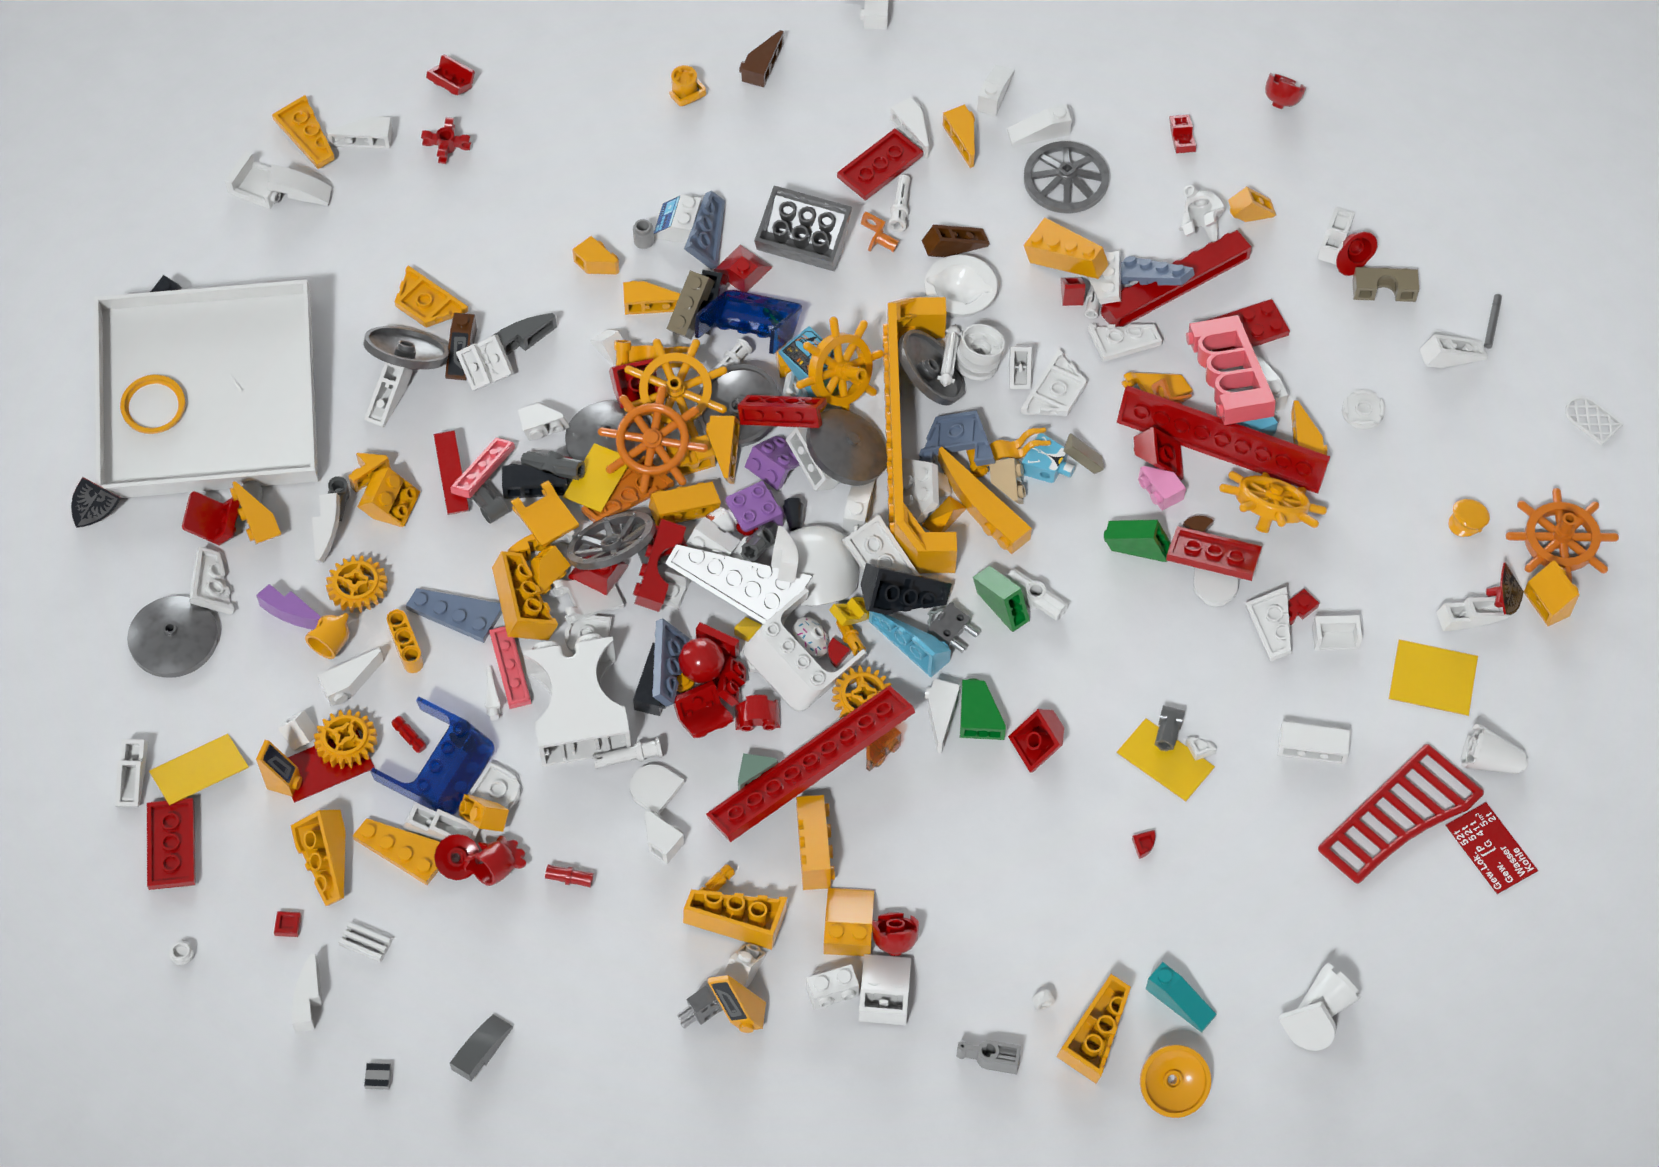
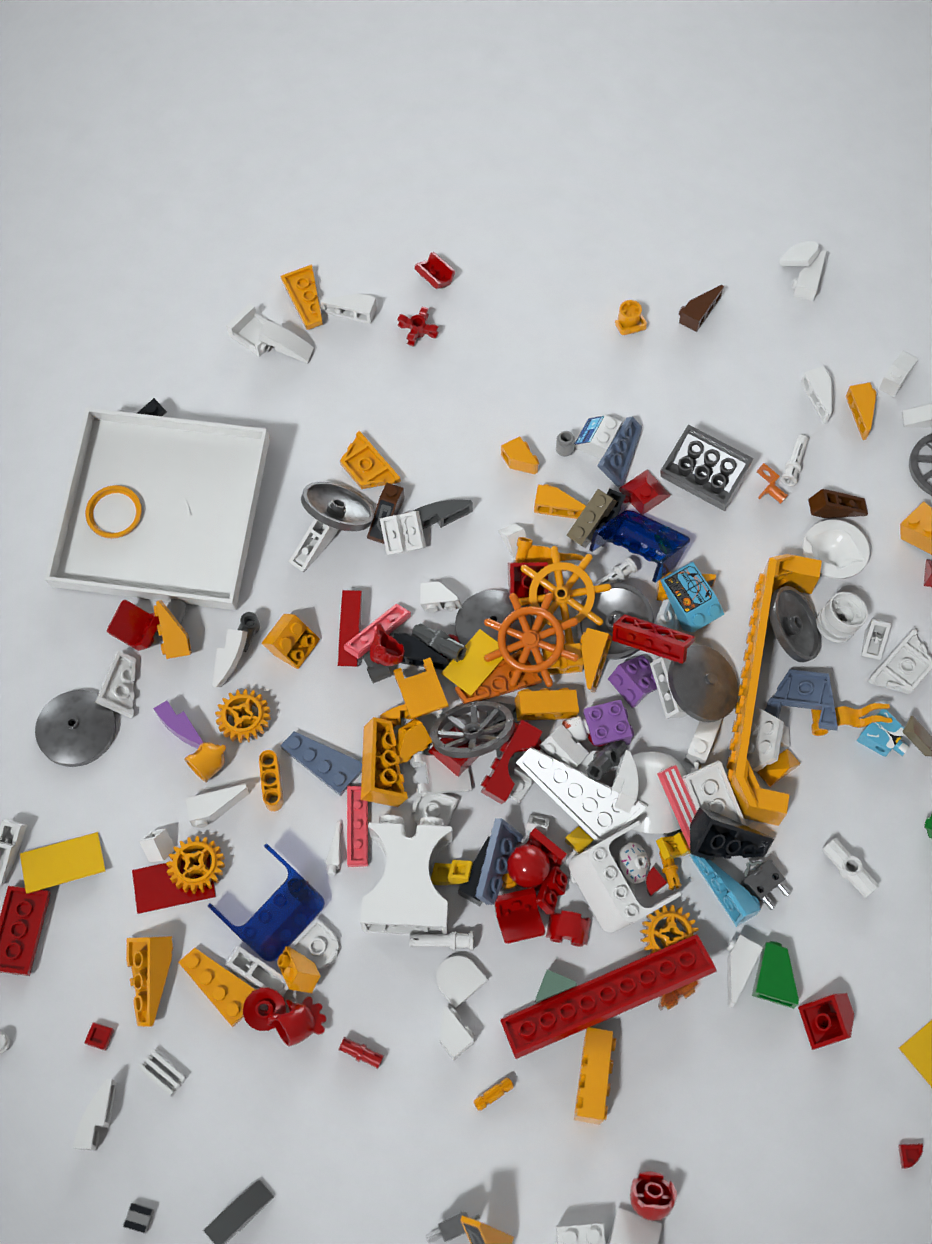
camera: 15 degrees right, 5 degrees up
(91, 503) = (39, 590): shield -> none
(277, 770) = (126, 885): light orange slope -> none
(369, 464) = (283, 606): light orange slope -> none
(408, 734) = (252, 872): red axle -> none
(497, 481) = (385, 648): none -> red hair
(627, 685) = (451, 874): none -> yellow slope
(708, 620) = (538, 822): none -> white plate
(736, 915) = (510, 1140): light orange wedge -> none
(745, 964) = (500, 1192): white slope -> none
(793, 513) = (642, 735): black cone -> none
(840, 368) = (714, 609): light orange piece -> none
(843, 562) = (678, 798): none -> coral tile
(848, 922) = (610, 1167): light orange slope -> none
(879, 164) = (784, 421): red plate -> none
(949, 355) = (813, 615): white wheel -> none
(984, 506) = (818, 767): light orange slope -> none
(1002, 597) = (818, 863): green slope -> none
(1007, 477) = (844, 746): tan slope -> none

